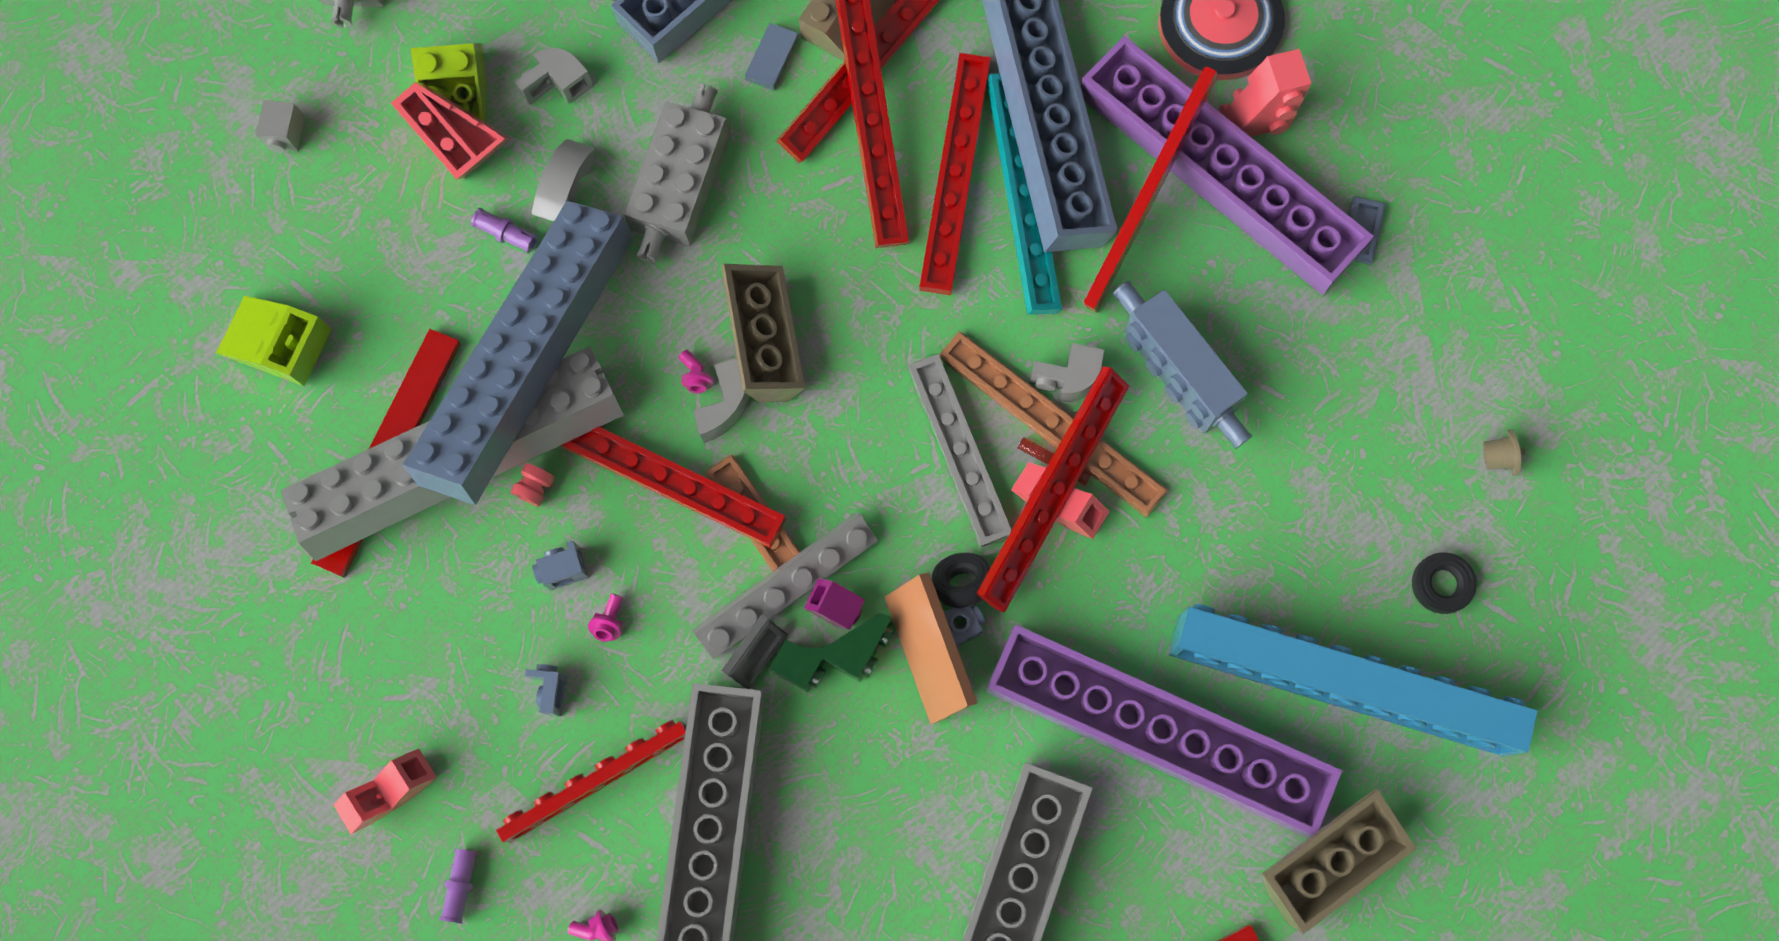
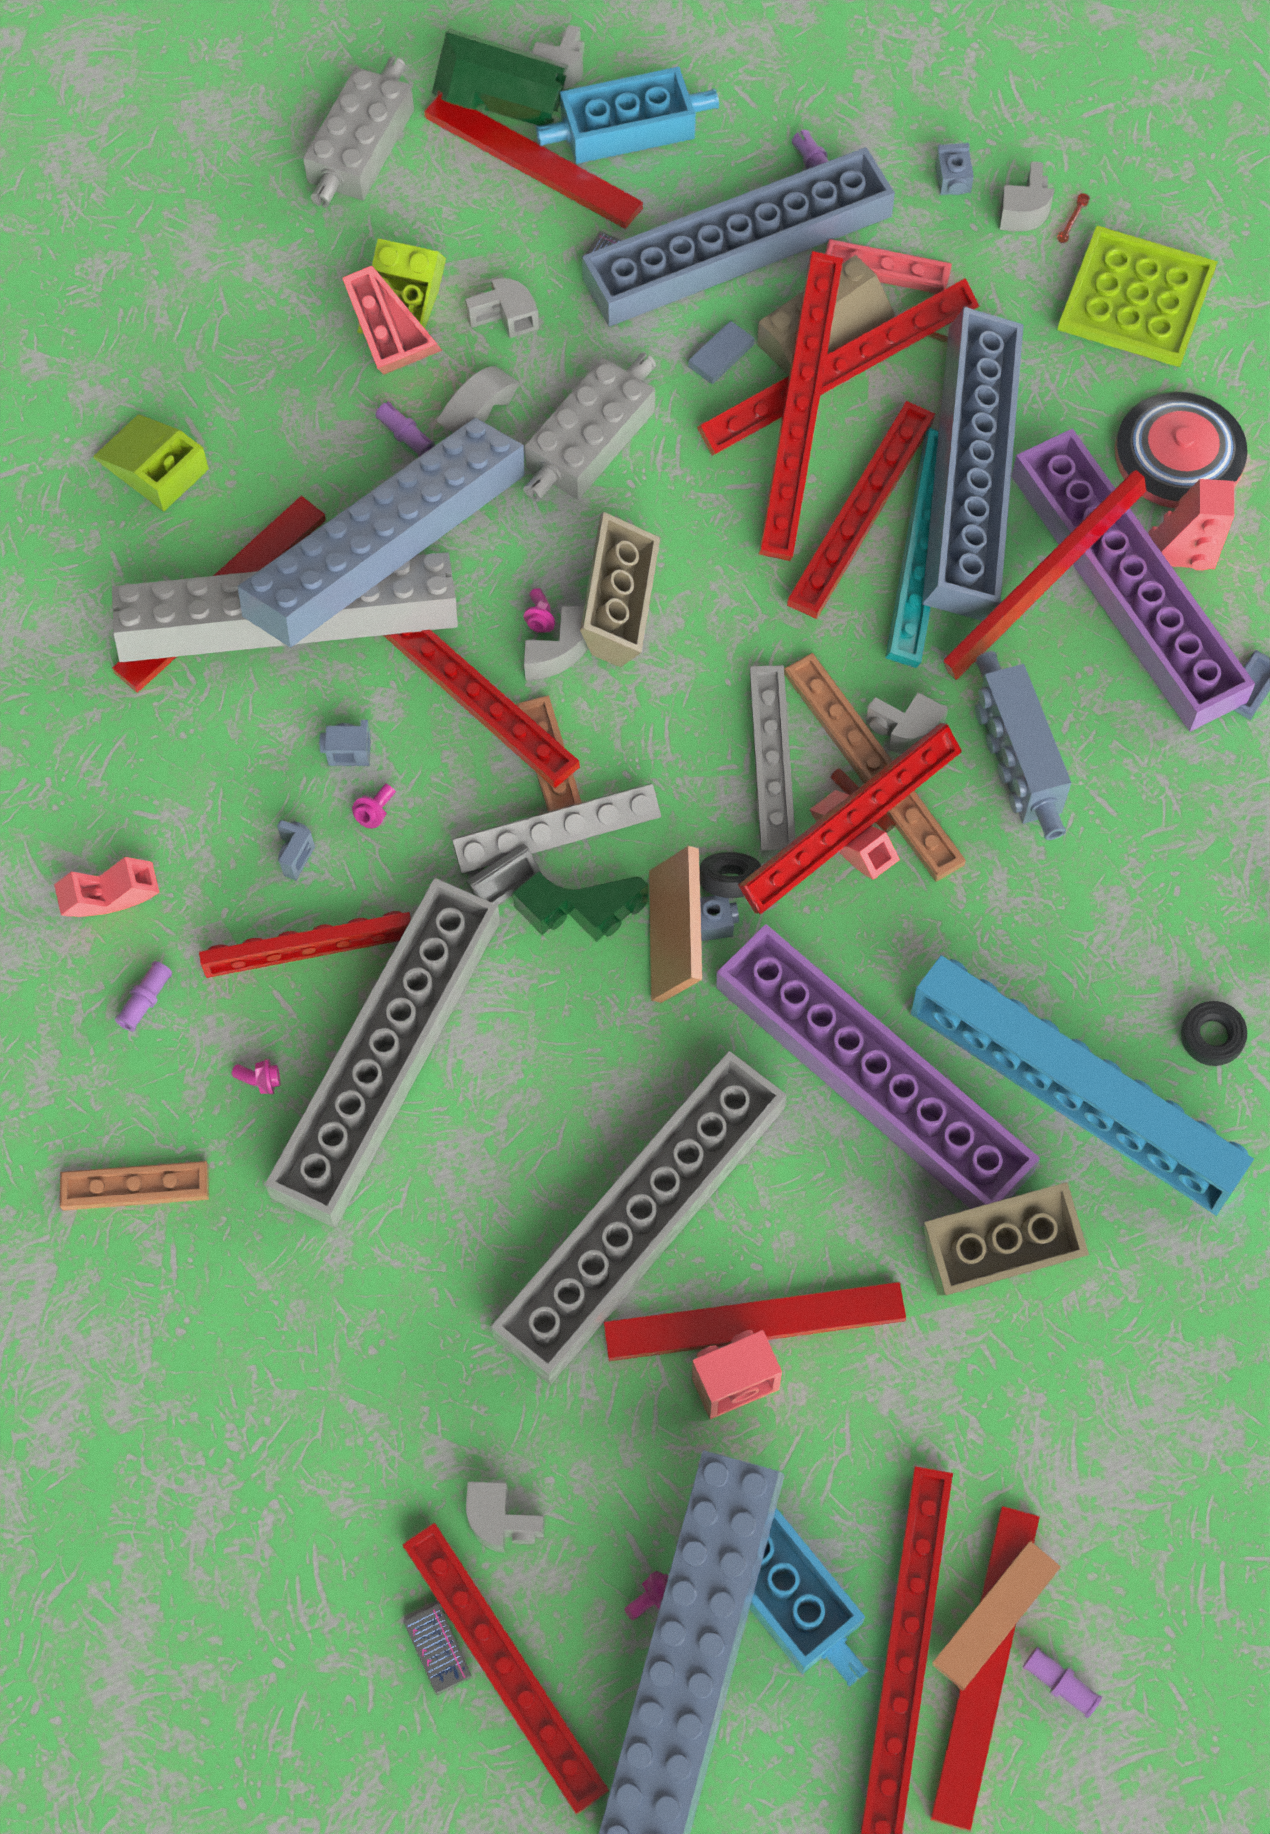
camera: 15 degrees right, 10 degrees down
(280, 126) = (228, 275): light grey brick -> none
(531, 486) = (347, 663): coral wheel -> none
(834, 604) = (598, 857): magenta brick -> none

